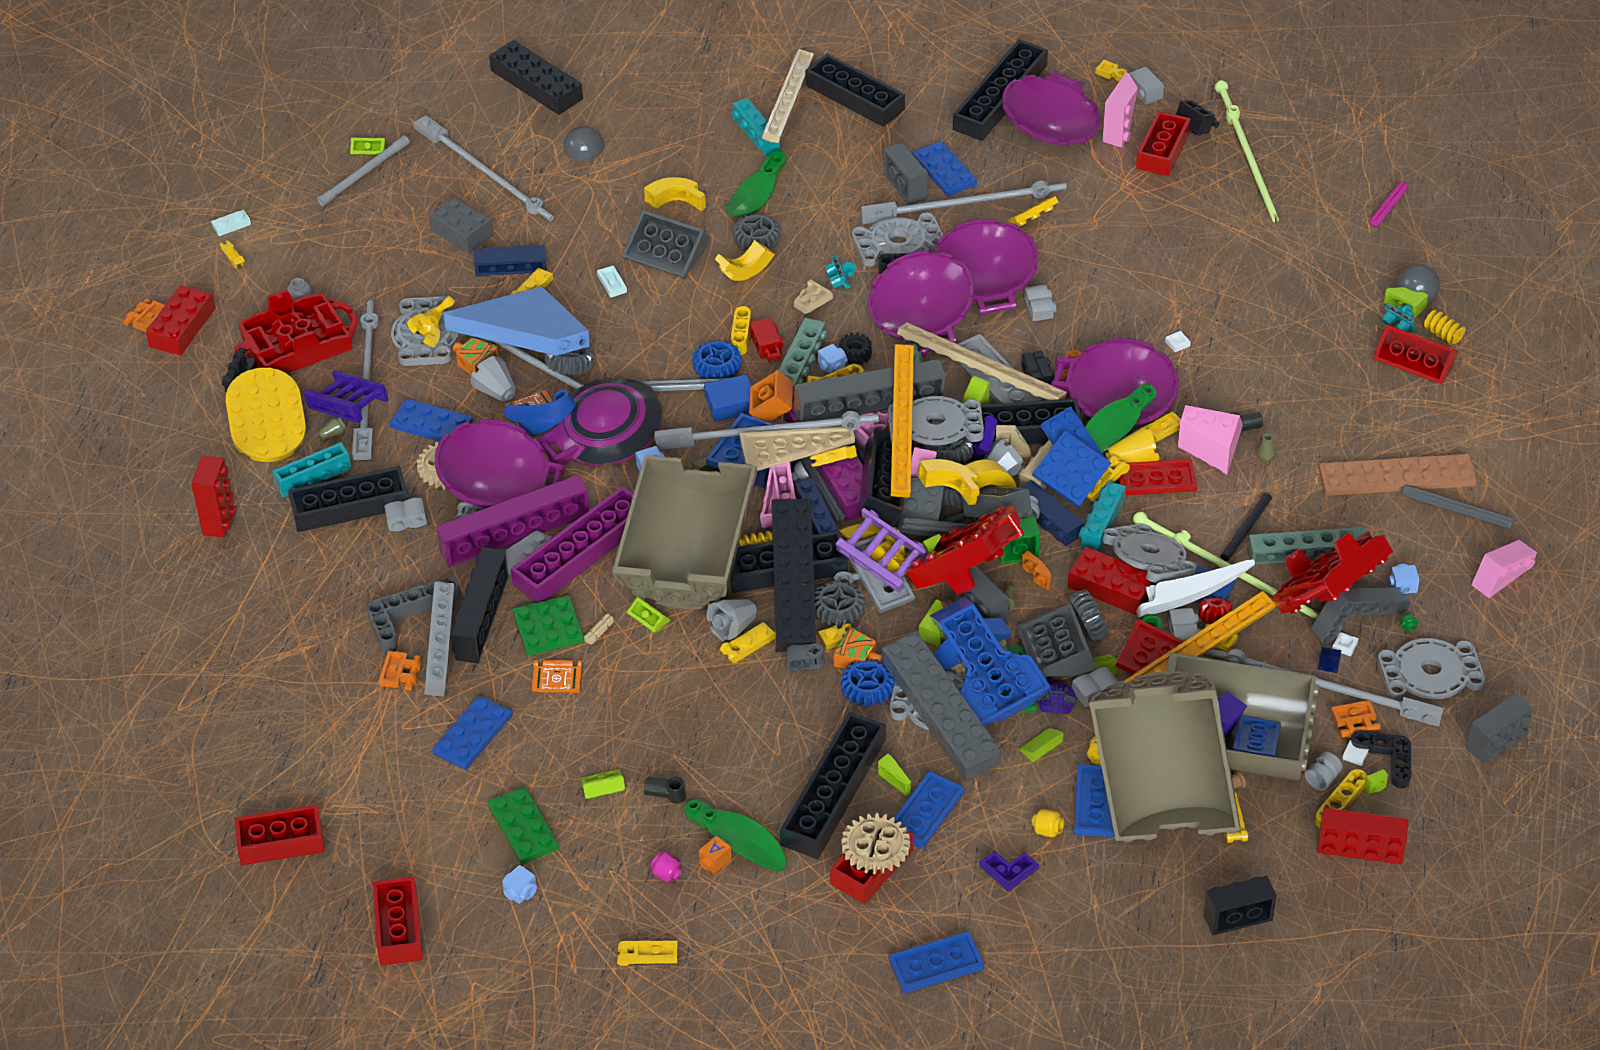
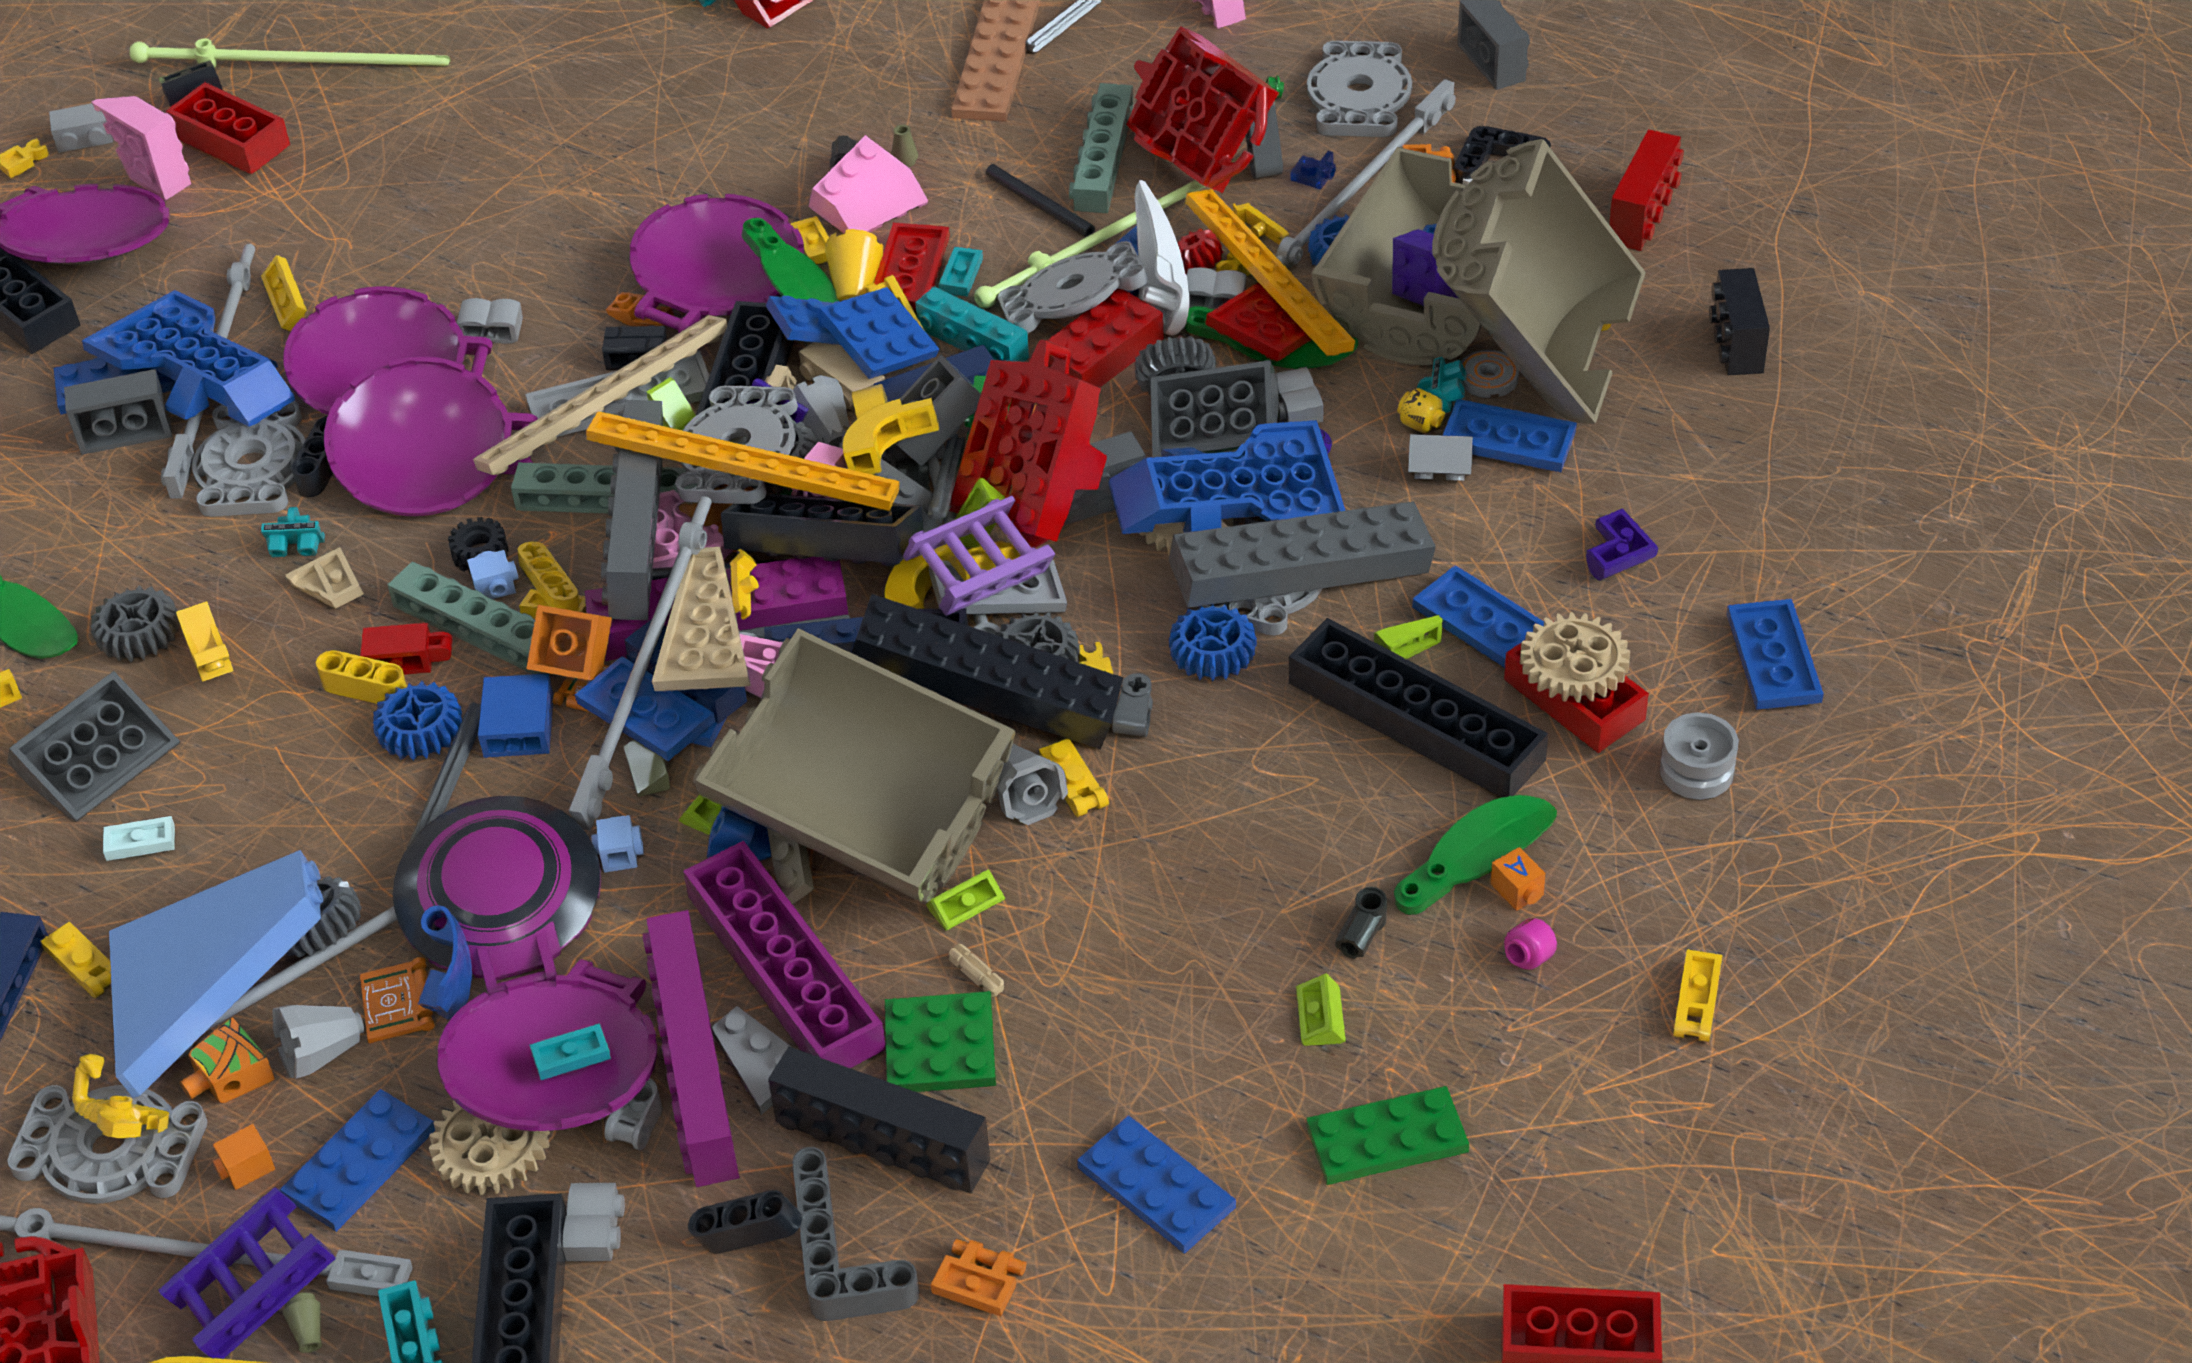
camera: 75 degrees left, 0 degrees up
(408, 568) = (745, 1222): none -> black beam
(421, 379) = (242, 1157): none -> orange brick
(439, 639) = (942, 1190): light grey brick -> none
(497, 474) = (570, 1051): none -> teal plate
(519, 884) = (1526, 1149): light blue brick -> none
(557, 676) = (1061, 1045): orange piece -> none
(829, 927) = (1699, 755): none -> light grey wheel
(856, 648) = (1142, 643): torso -> none
(928, 629) = (1118, 551): lime slope -> none
(958, 174) = (180, 342): none -> blue piece
(1042, 744) = (1384, 473): lime slope -> none
(1048, 823) = (1541, 489): yellow head -> none
(1059, 764) = (1440, 456): none -> light grey brick
(1160, 502) = (961, 271): none -> teal plate
(1177, 341) = (641, 199): white tile -> none
(1261, 644) = (1260, 223): none -> yellow piece
(1345, 643) = (1291, 152): white tile -> none

